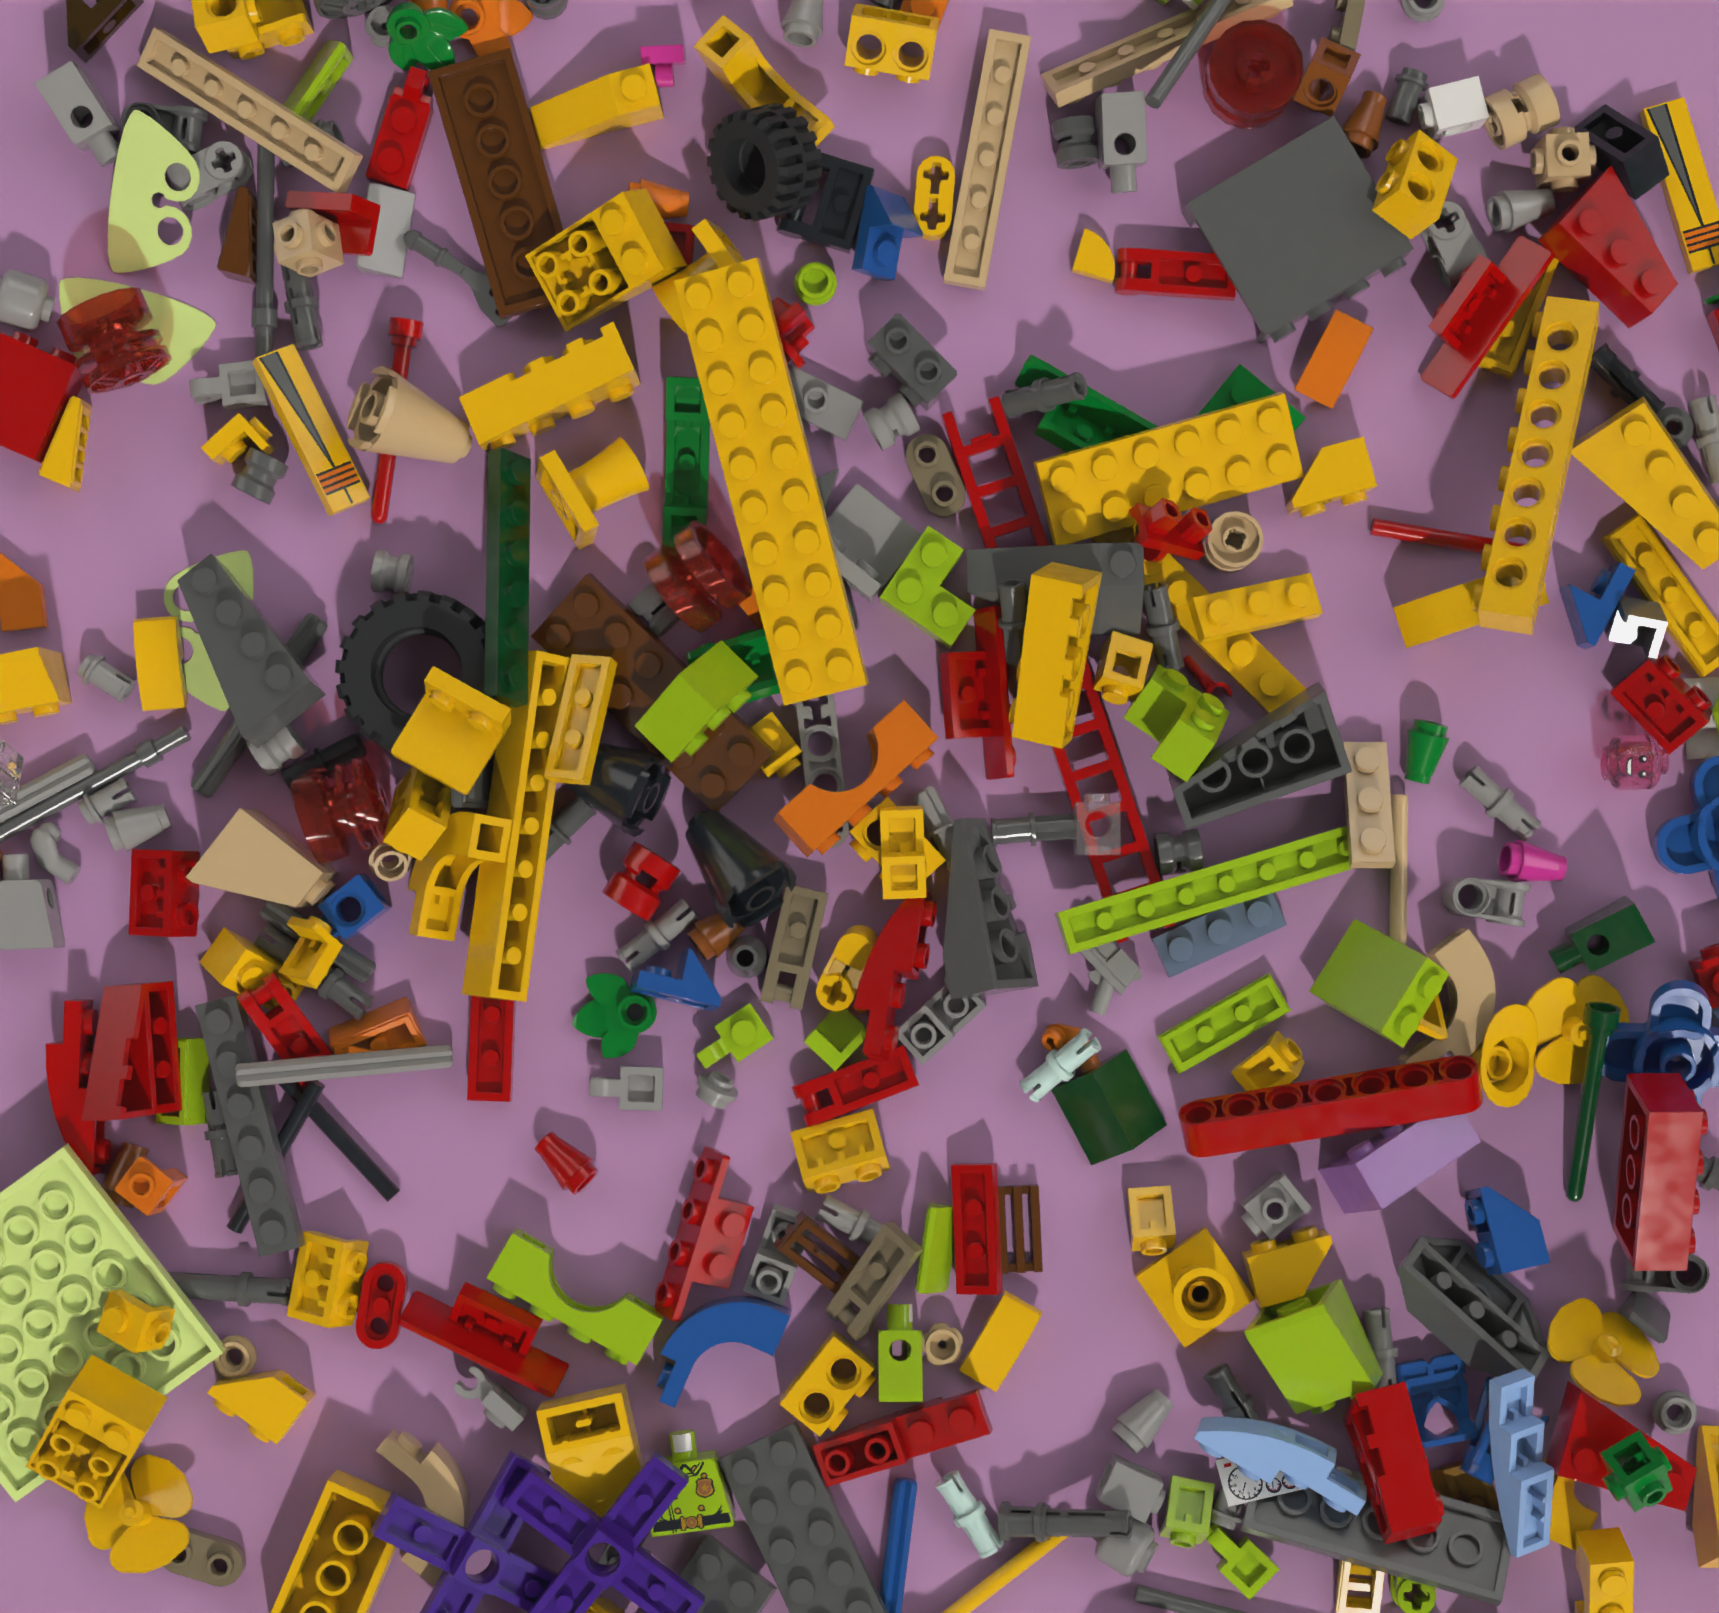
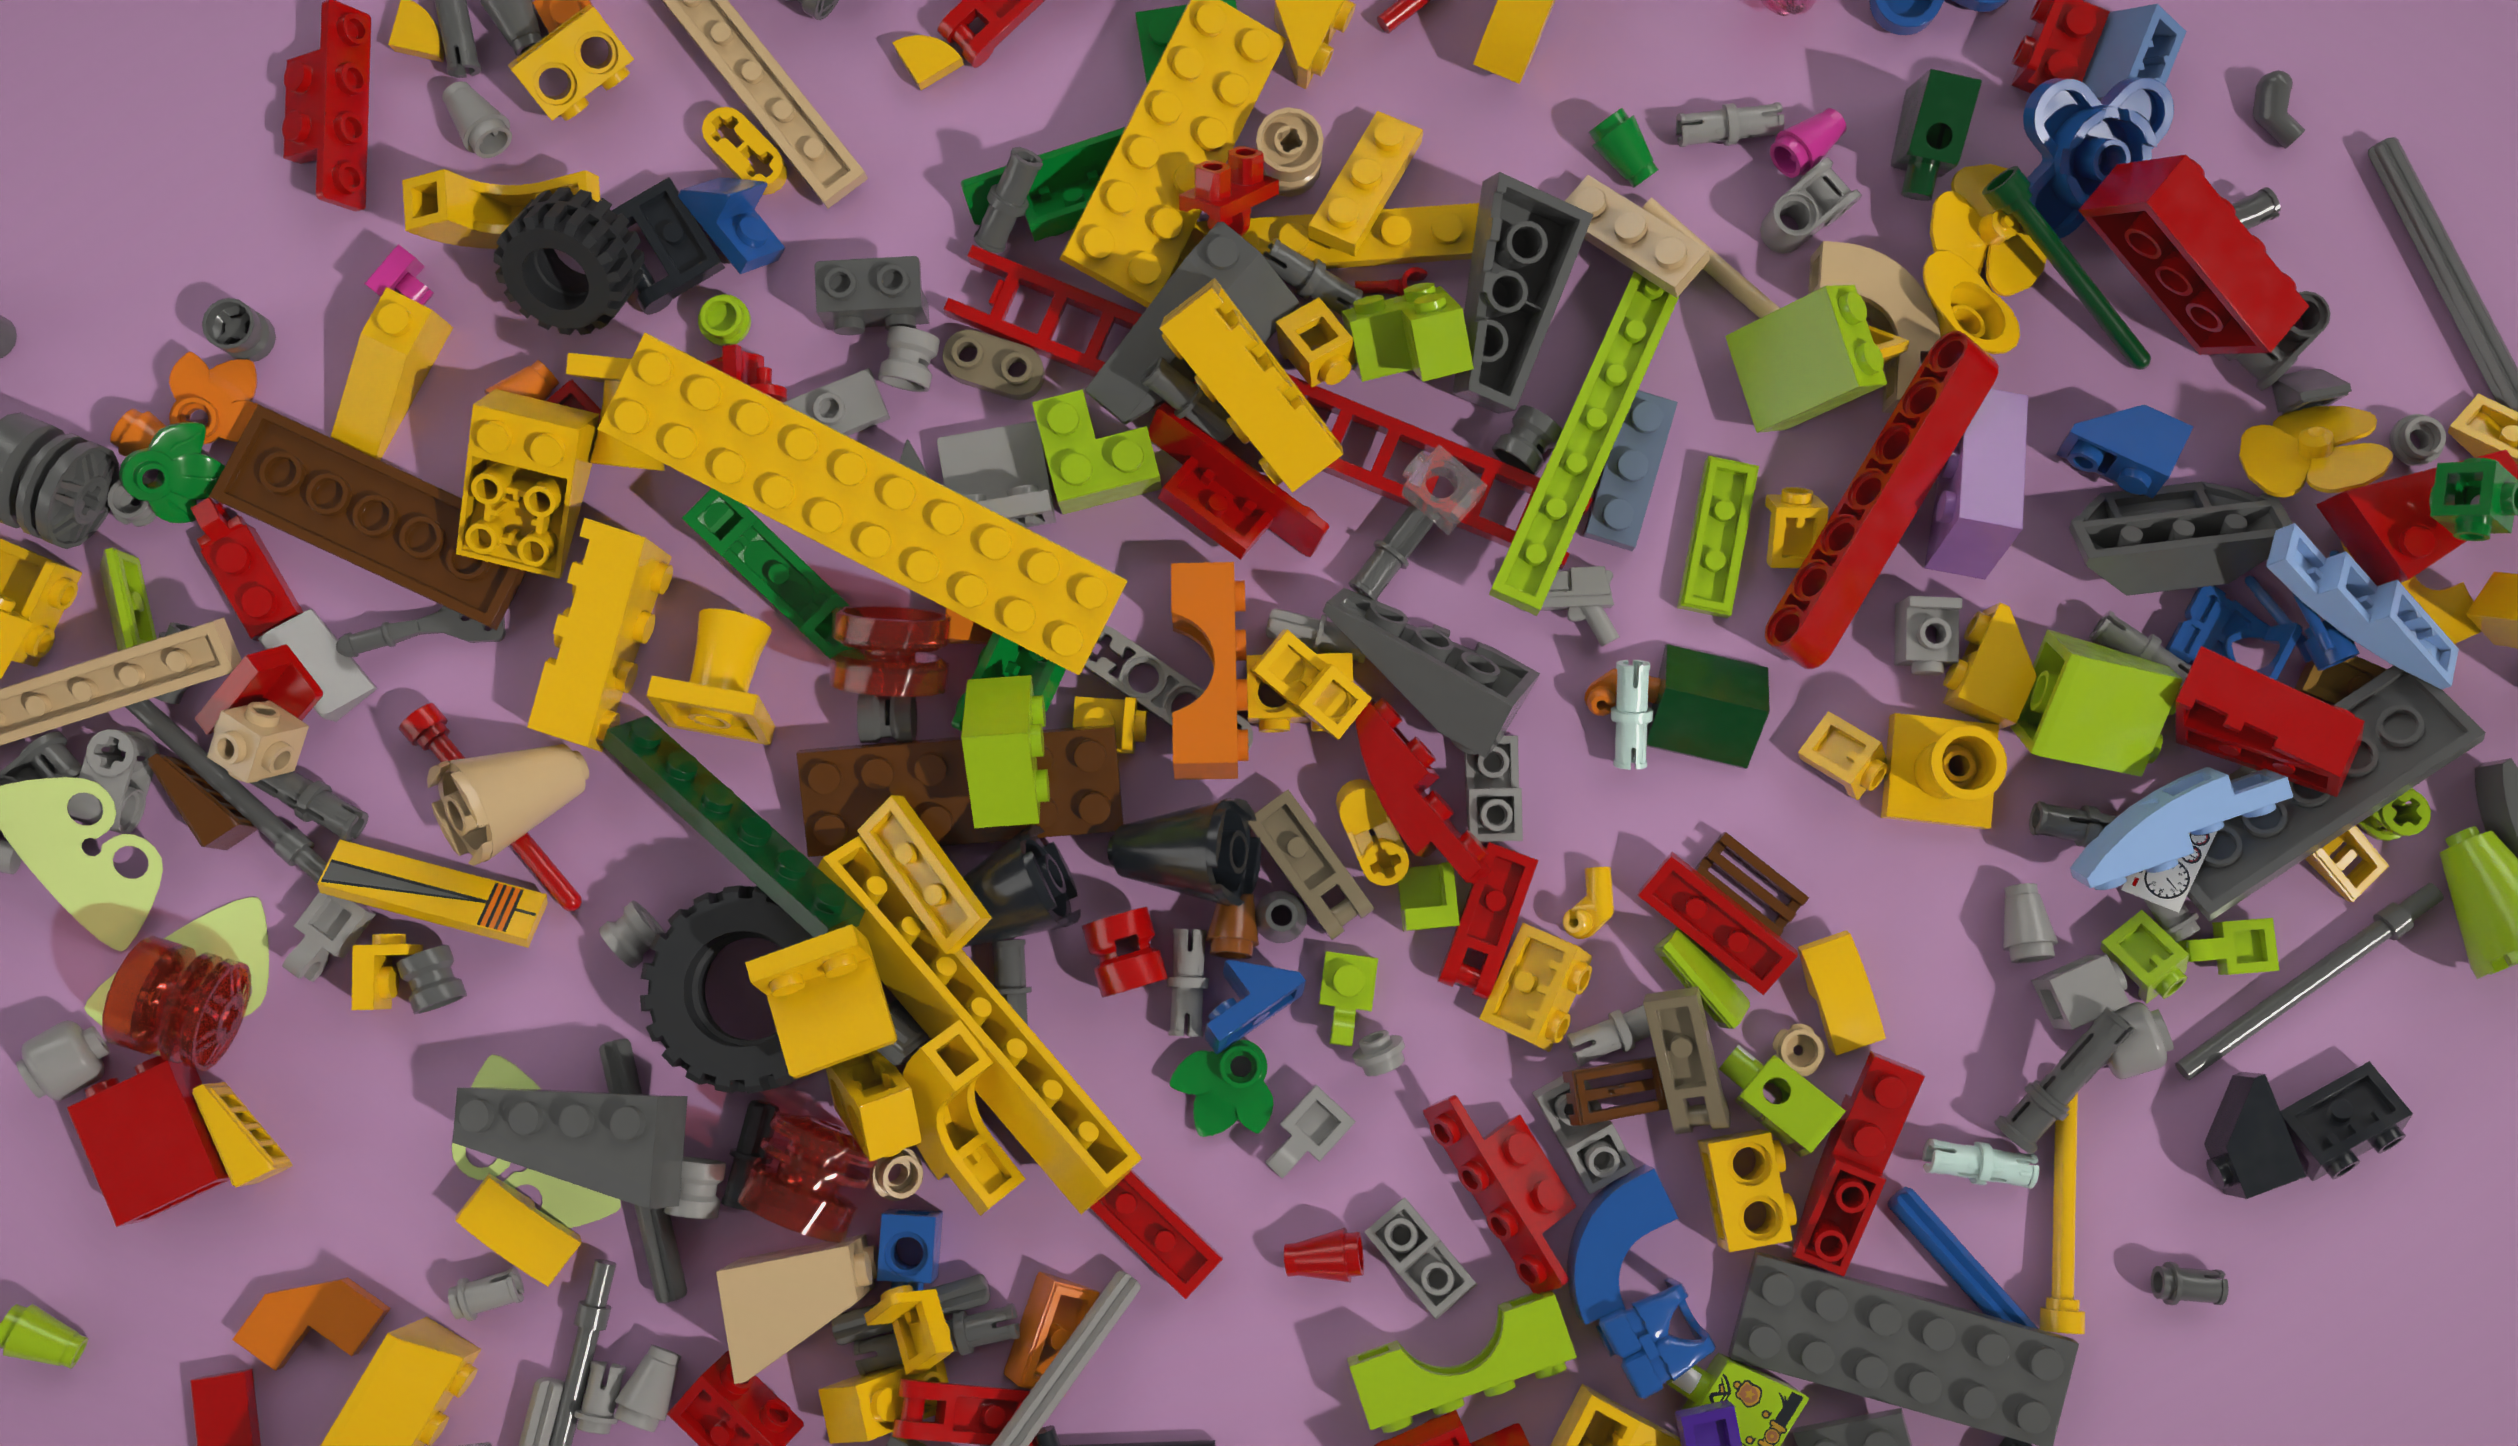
camera: 55 degrees left, 5 degrees down
(615, 1220) = (1420, 1258): none -> light grey slope
(679, 1401) = (1644, 1342): none -> blue piece
(921, 1145) = (1594, 908): none -> yellow arm

